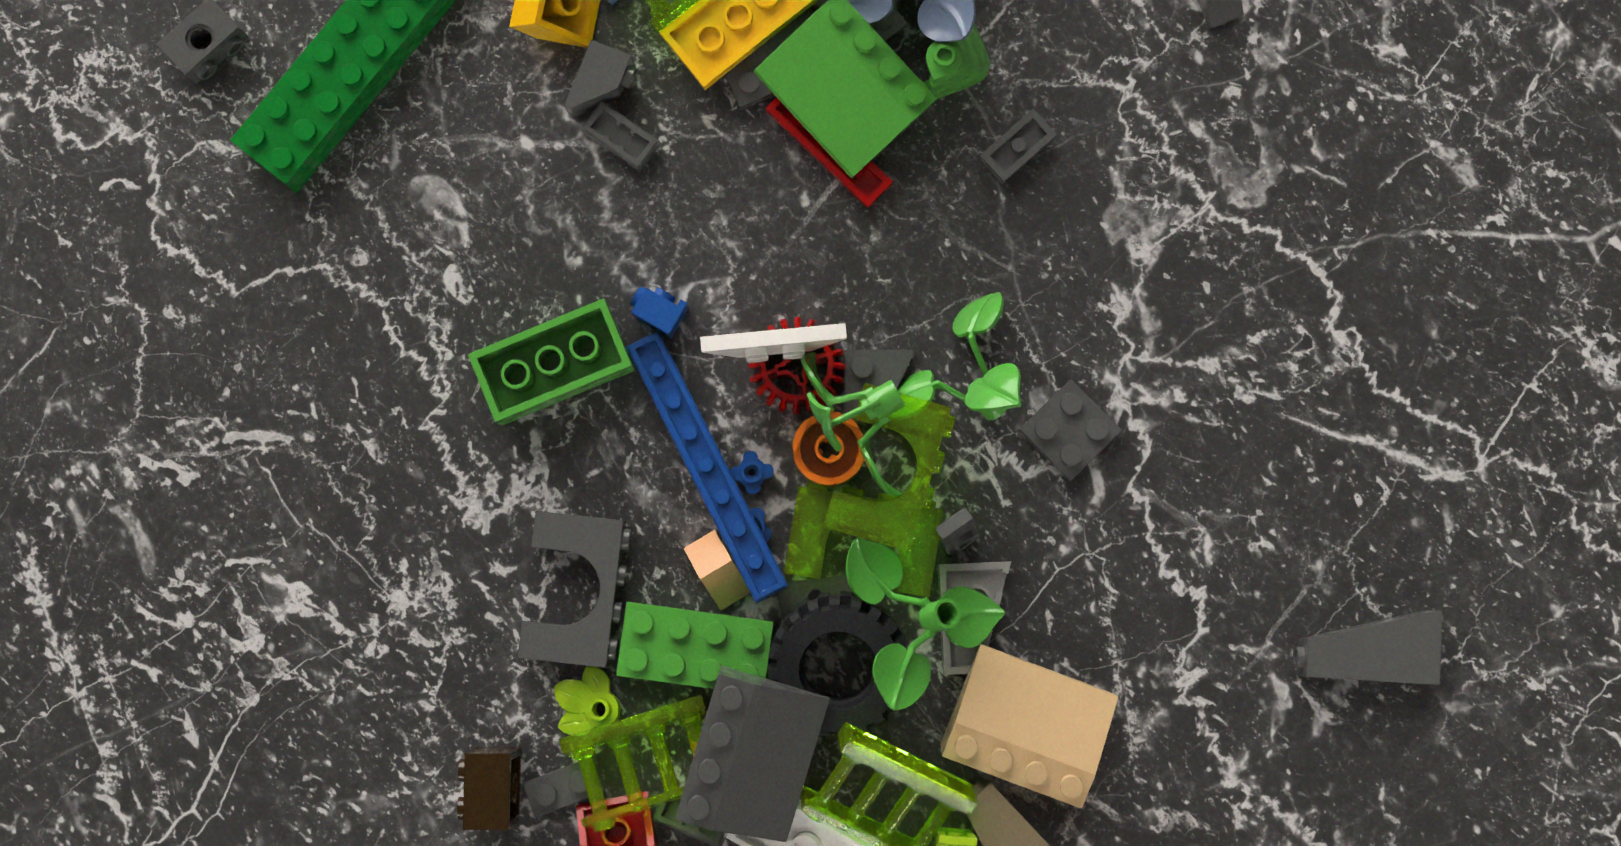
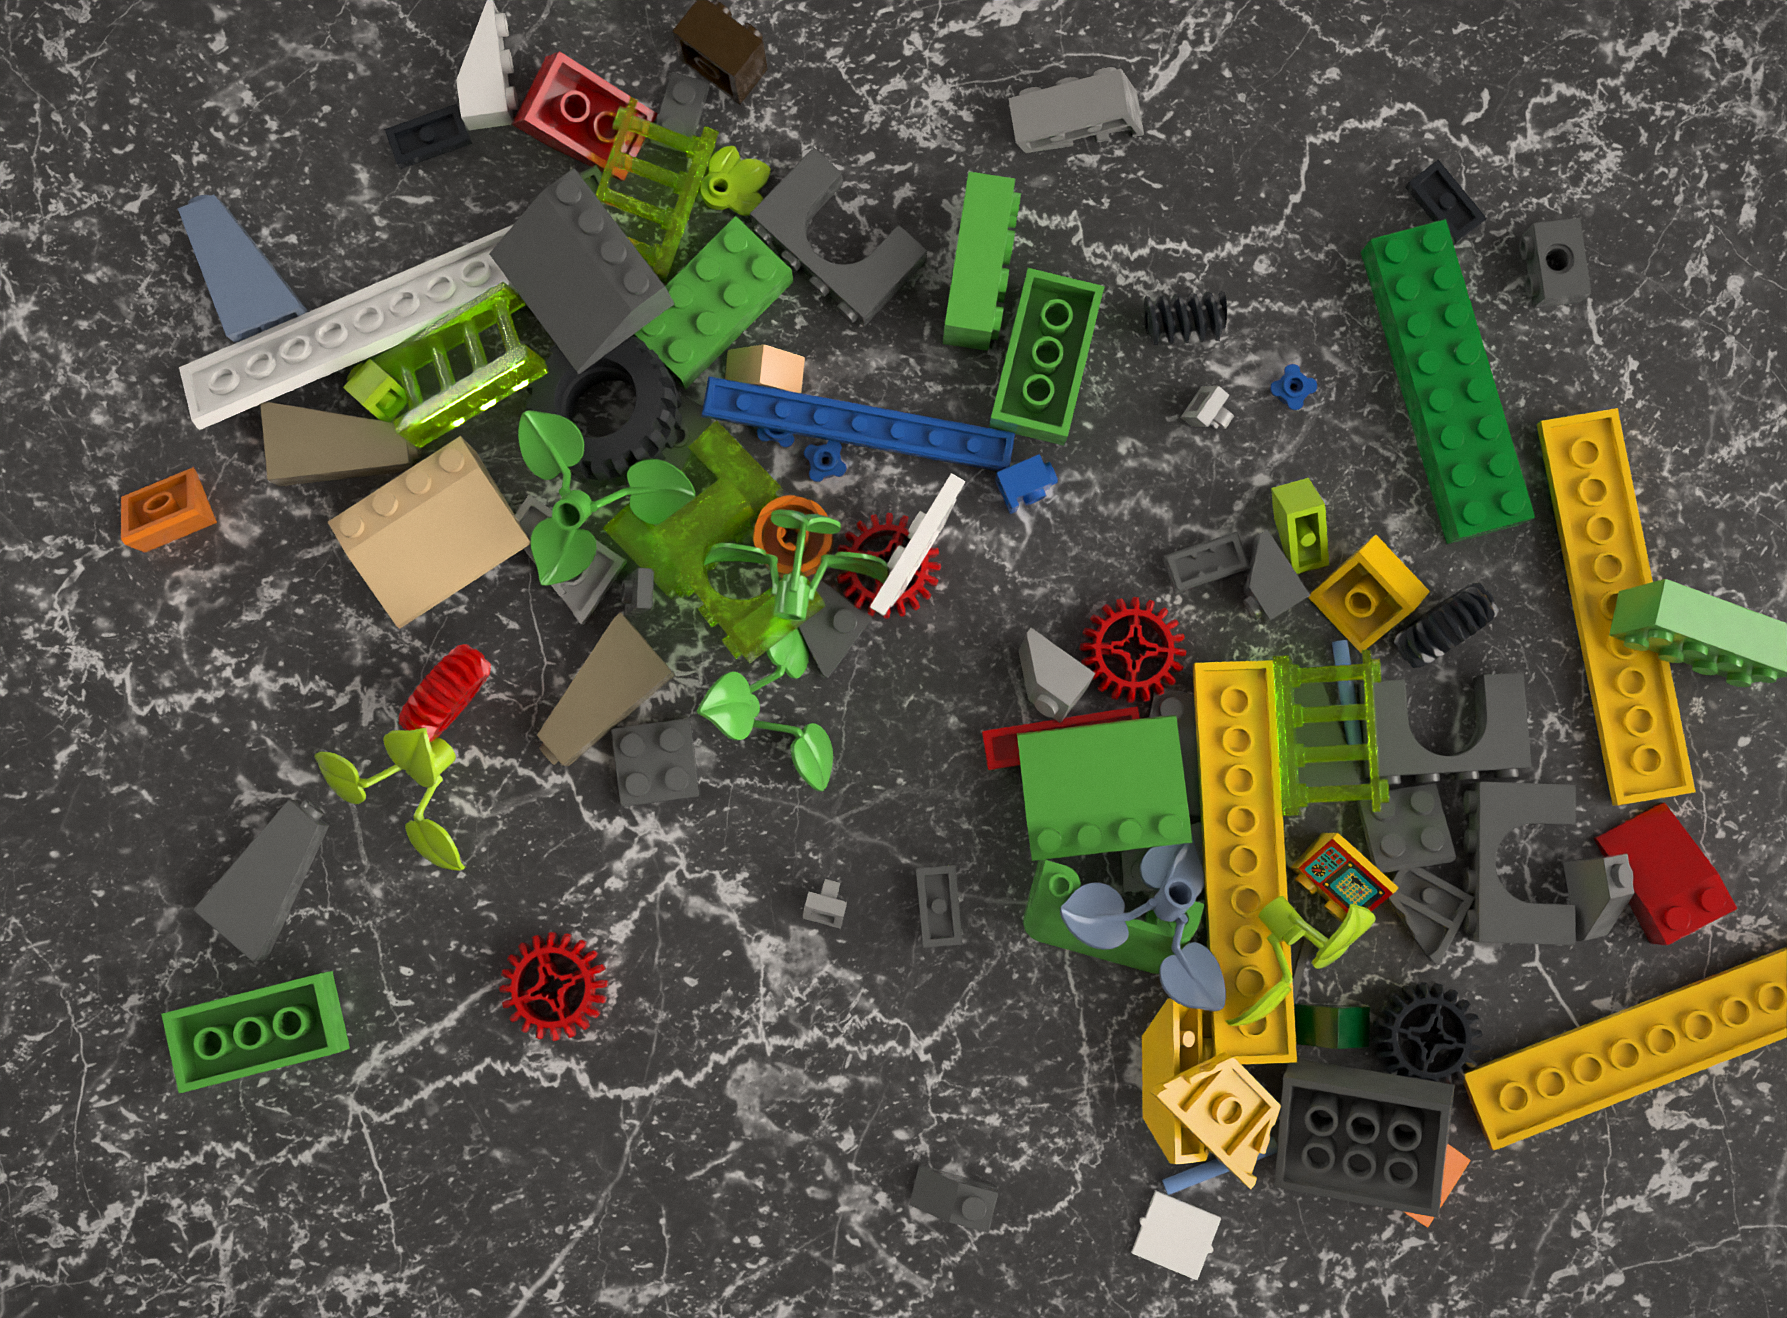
camera: 125 degrees right, 0 degrees up
(212, 155) = (1445, 199): none -> black plate
(343, 480) = (1075, 110): none -> light grey wedge
(443, 282) = (1185, 316): none -> black piece
(446, 174) = (1282, 389): none -> blue plate
(502, 217) = (1207, 408): none -> light grey tile
(514, 464) = (981, 250): none -> bright green brick
(540, 86) = (1301, 524): none -> lime slope
(713, 151) = (1133, 631): none -> red gear
(790, 184) = (1052, 676): none -> light grey slope
(1039, 503) = (604, 692): none -> dark tan slope
(1080, 226) = (825, 907): none -> light grey tile
(1142, 617) = (445, 691): none -> red gear
(1207, 597) = (424, 763): none -> lime plant
(1304, 355) = (560, 1004): none -> red gear
(1489, 570) = (255, 1031): none -> bright green brick

